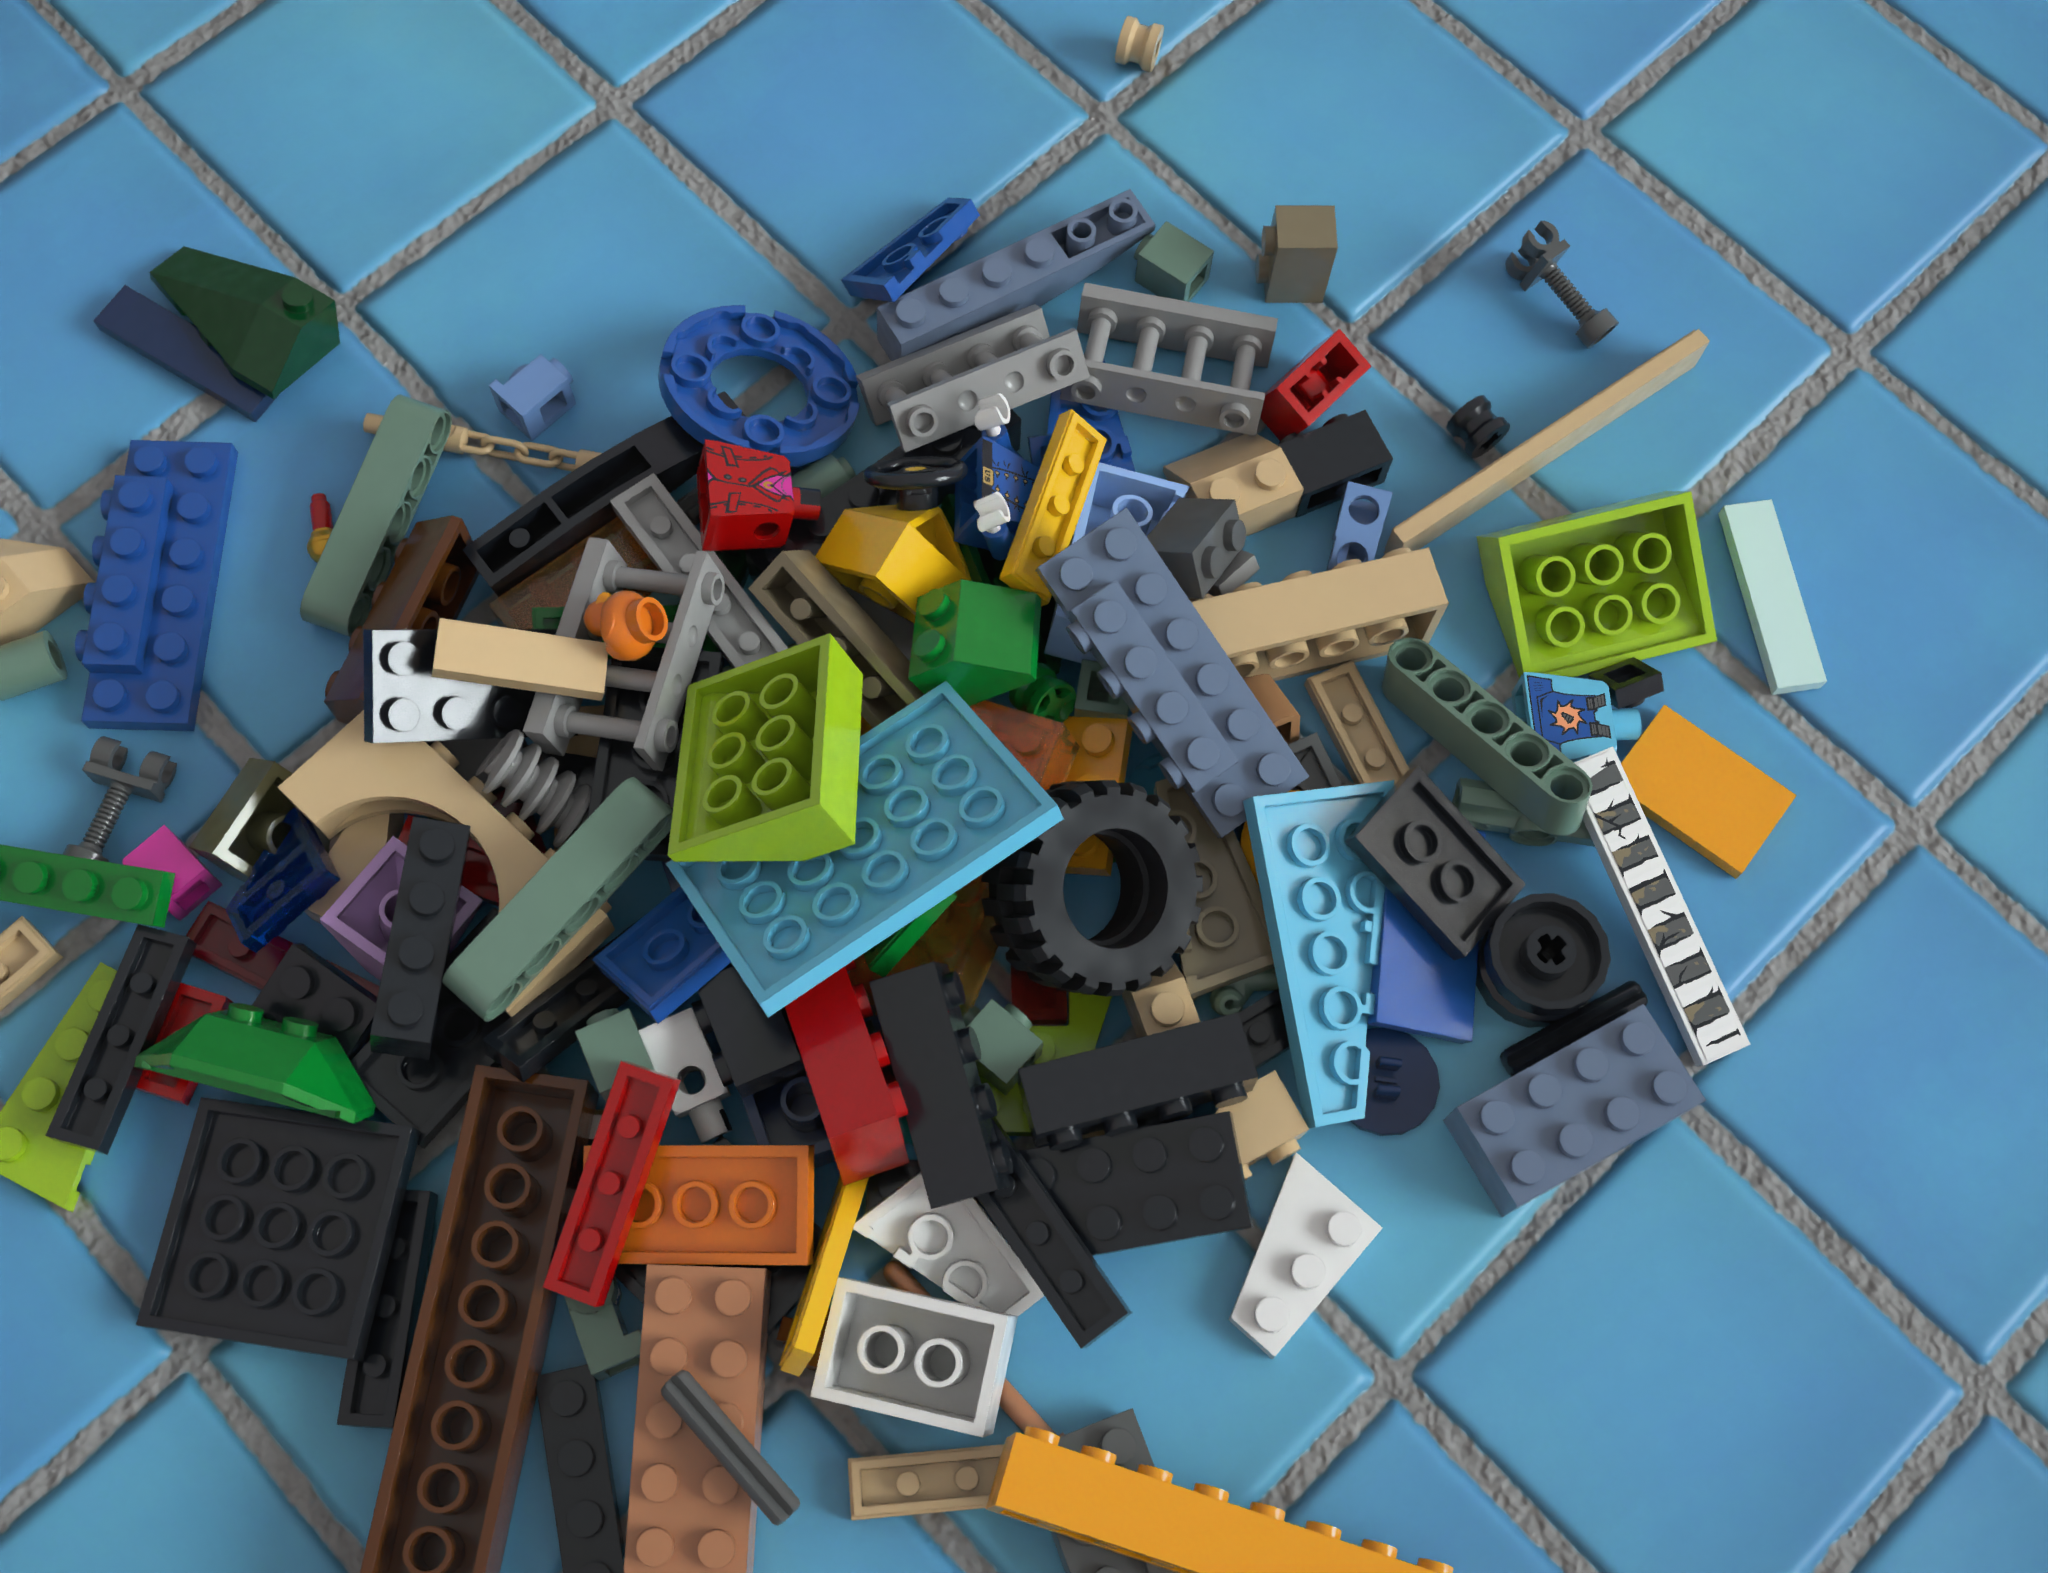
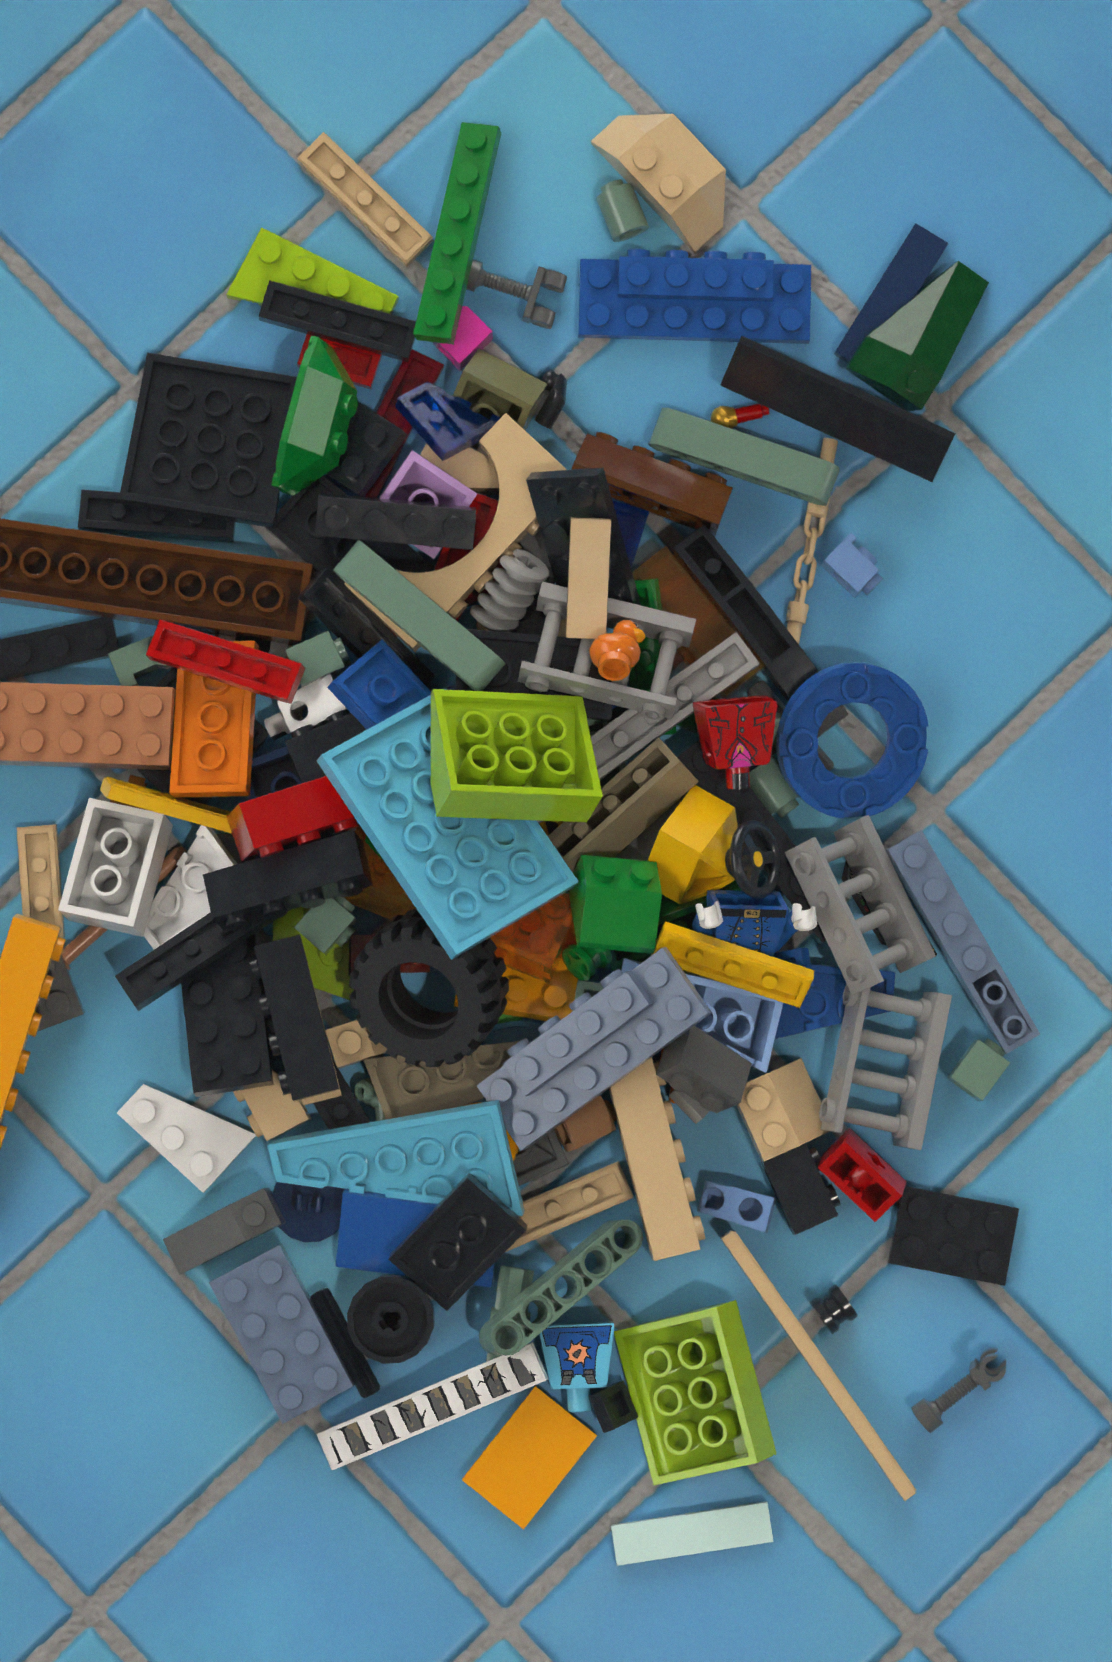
camera: 90 degrees right, 15 degrees up
(270, 749) = (555, 400): none -> black arm
(319, 398) = (837, 409): none -> black slope
(730, 1447) = (53, 746): dark grey axle -> none
(907, 256) = (982, 856): blue wing -> none
(1297, 253) = (980, 1167): dark tan brick -> none
(1378, 298) = (953, 1235): none -> black plate
(1435, 1193) = (224, 1230): none -> dark grey slope

